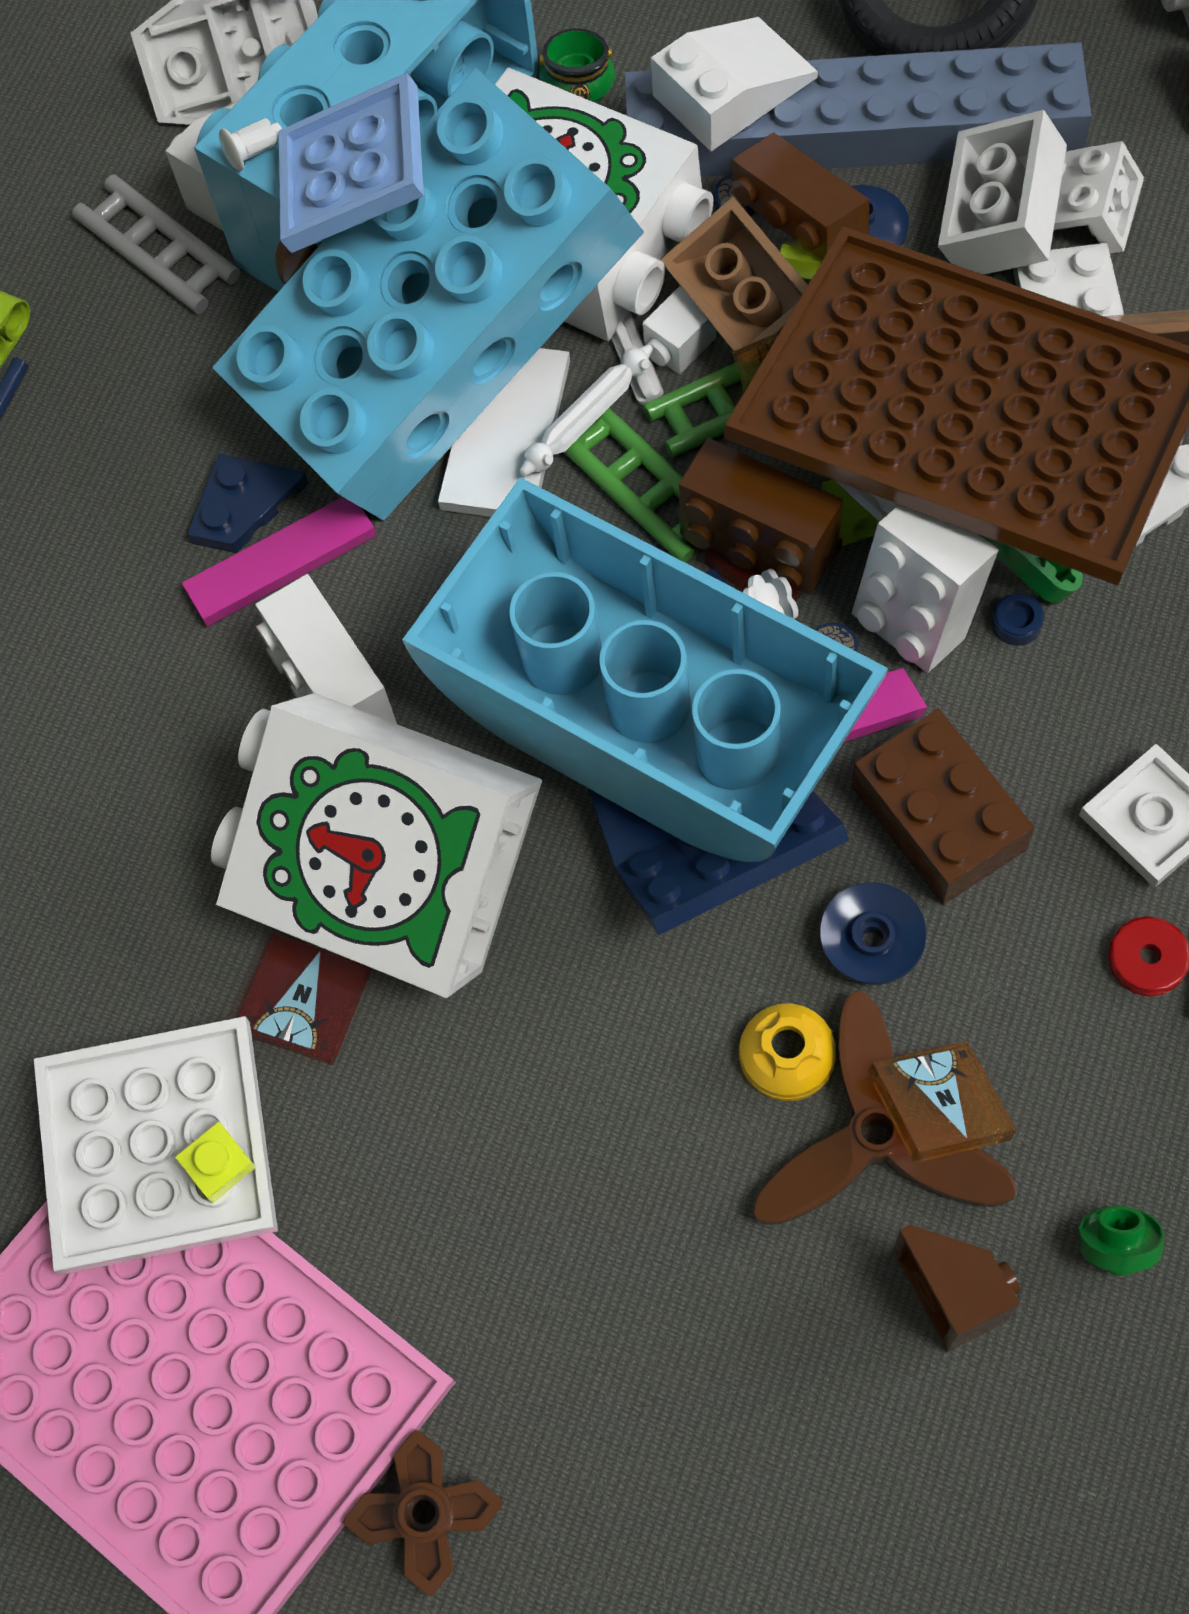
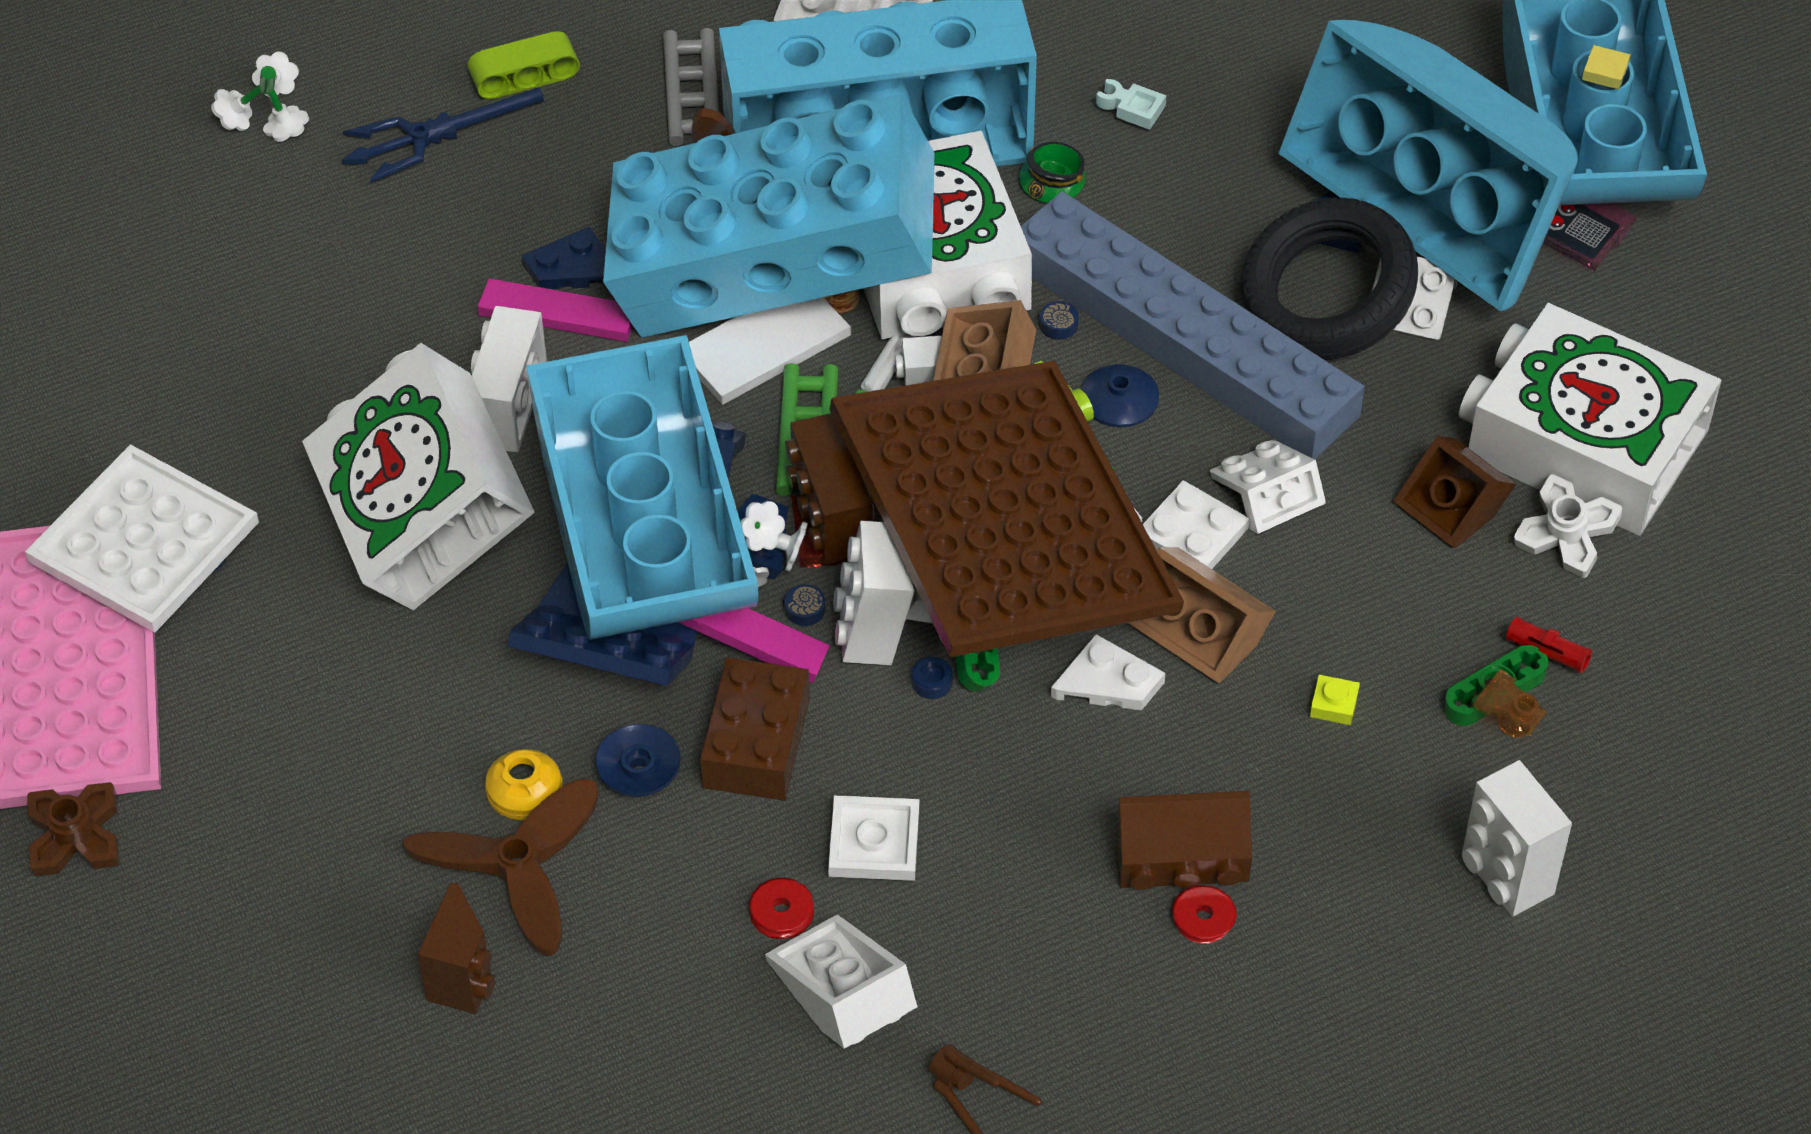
camera: 35 degrees right, 15 degrees down
(215, 1162) = (158, 565): neon yellow plate -> none
(248, 141) = (747, 45): white piece -> none
(304, 998) = (302, 542): clear red tile -> none
(350, 163) = (775, 93): light blue plate -> none
(586, 409) = (817, 362): white wheel -> none
(727, 77) = (1110, 235): white slope -> none
(797, 194) = (1078, 337): reddish brown brick -> none
(941, 1101) = (566, 867): clear orange tile -> none
(1003, 194) = (1205, 435): white brick -> none
(1121, 1240) = (578, 1018): green plate -> none

